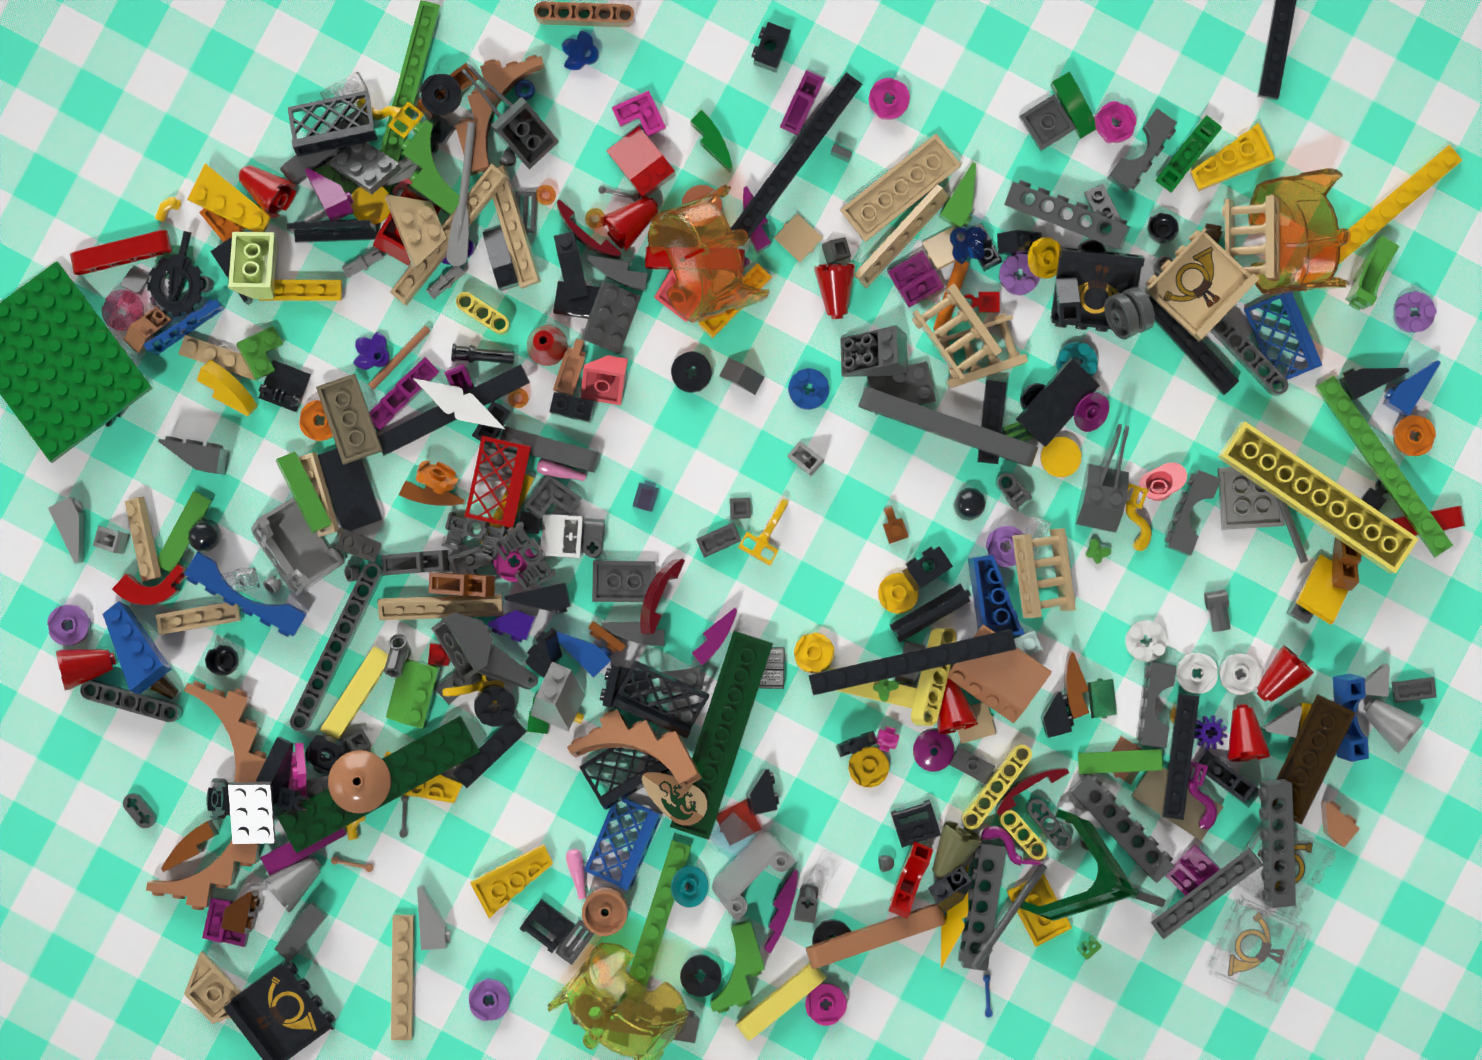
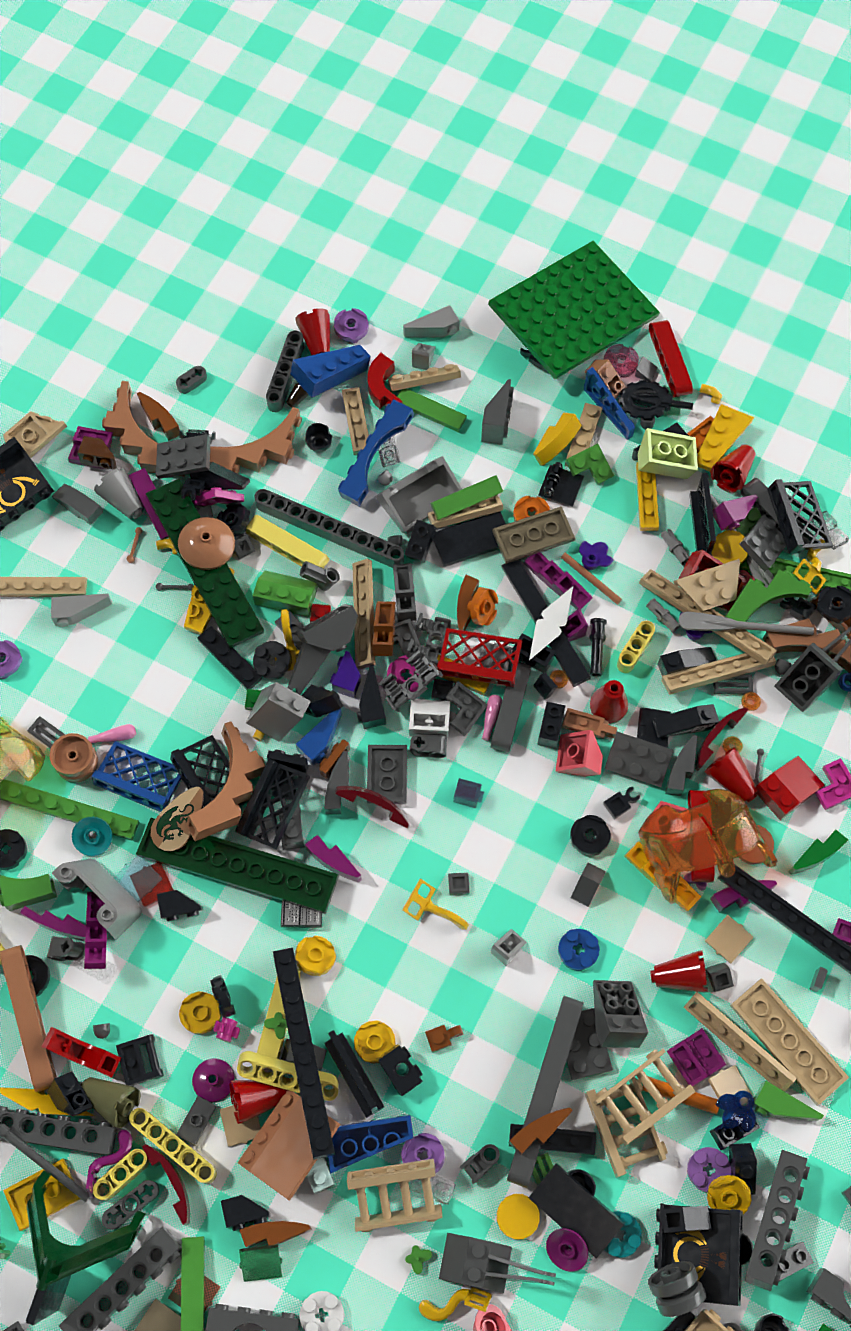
camera: 90 degrees right, 20 degrees down
(204, 535) = (428, 424): black hair -> none
(504, 882) = (107, 669): yellow wing -> none
(527, 412) = (545, 686): none -> black plate
(551, 920) = (71, 711): black plate -> none
(658, 340) = (619, 803): none -> black plate
(718, 540) = (427, 862): dark grey plate -> none
(798, 873) = (95, 935): none -> magenta slope
(969, 504) = (466, 1116): black hair -> none
(986, 302) = (677, 1133): red plate -> none
(988, 434) = (539, 1129): none -> dark orange slope

